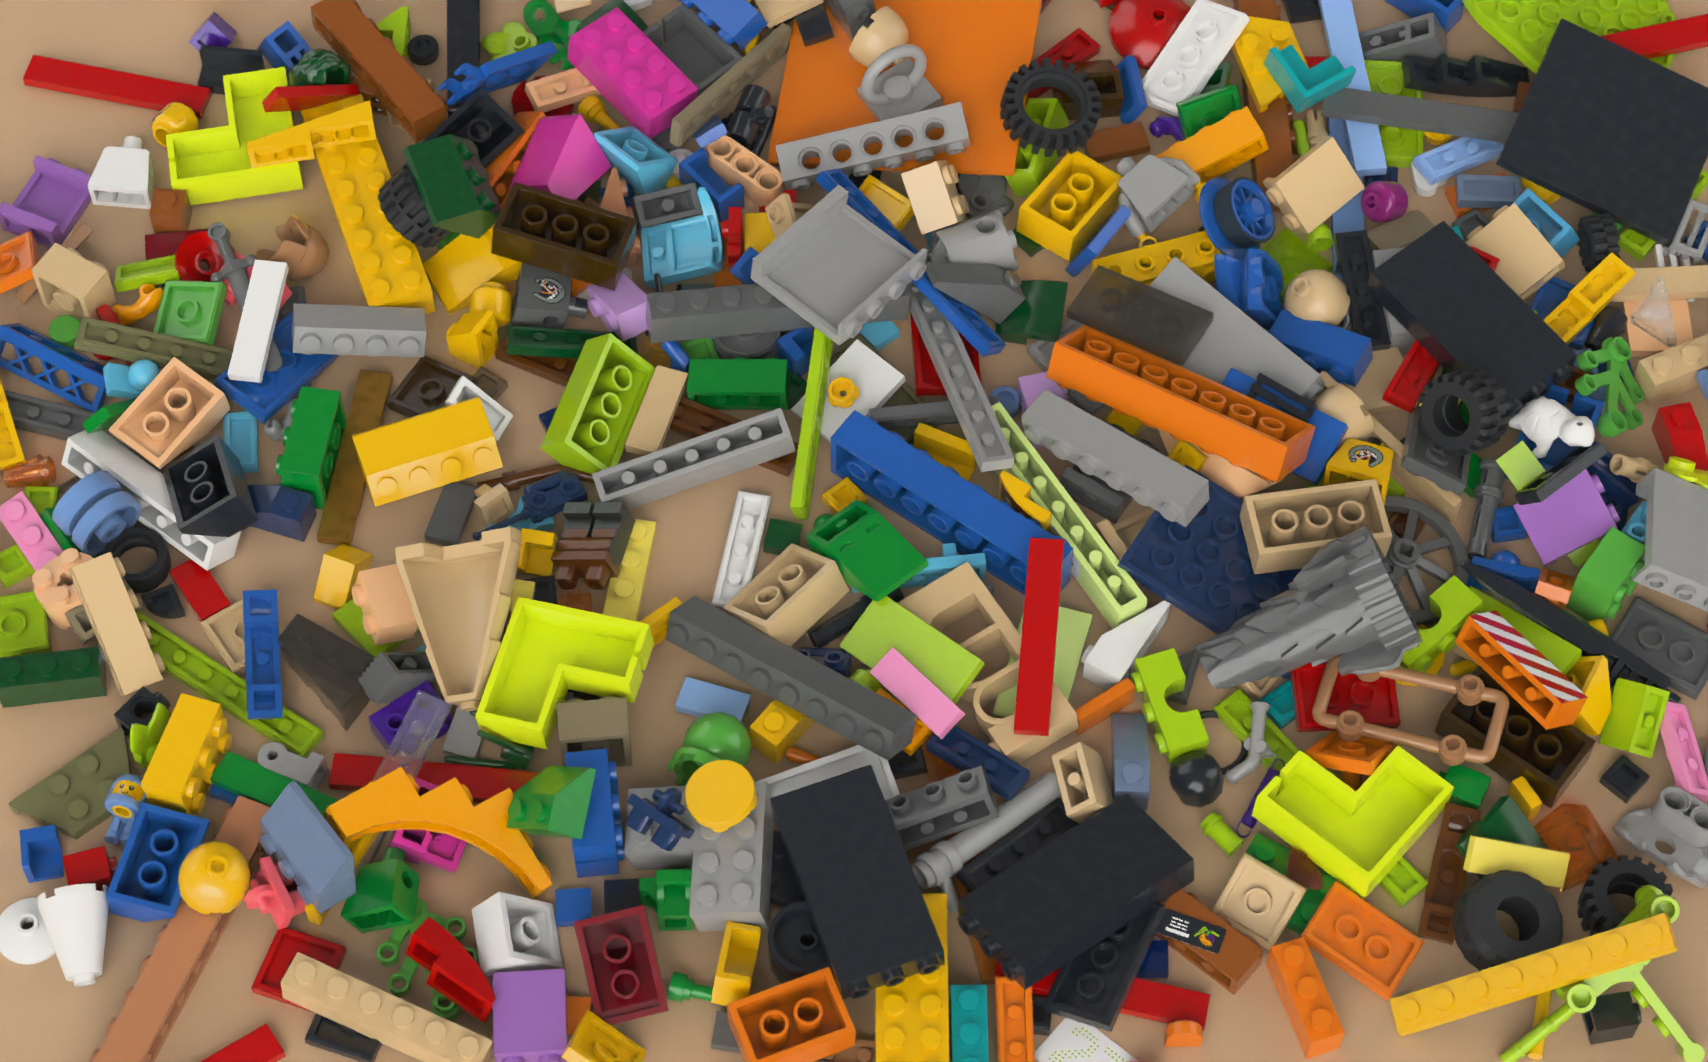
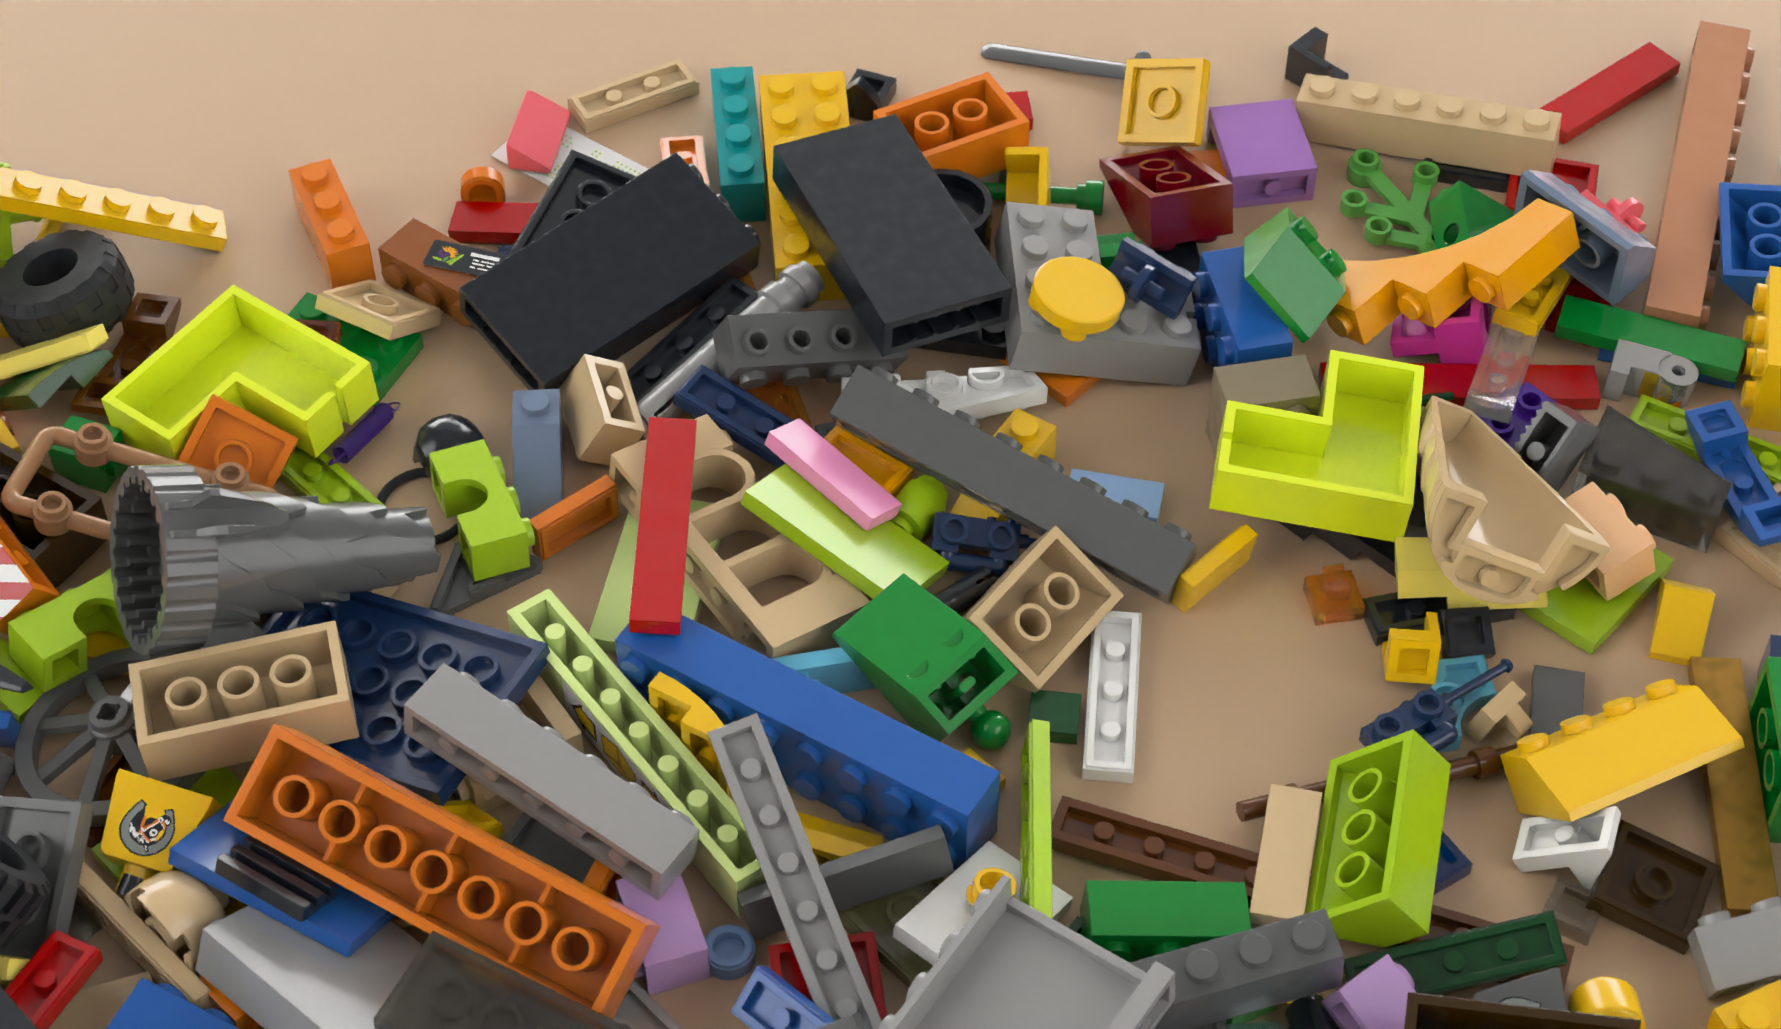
camera: 175 degrees right, 10 degrees down
(214, 878) = (1688, 209): yellow cylinder -> none
(451, 969) = (1368, 166): red slope -> none
(473, 338) = (1621, 948): yellow slope -> none
(516, 934) = (1309, 195): white slope -> none
(592, 543) = (1337, 655): hips -> none
(627, 590) = (1270, 646): light yellow plate -> none
(696, 461) = (1203, 765): light grey brick -> none
(710, 739) = (1101, 397): bright green tile -> none
(1116, 650) = (556, 562): white slope -> none
(1221, 833) = (427, 396): lime pin -> none
(1254, 744) = (362, 473): light grey piece -> none
(1361, 940) = (273, 278): orange tile -> none

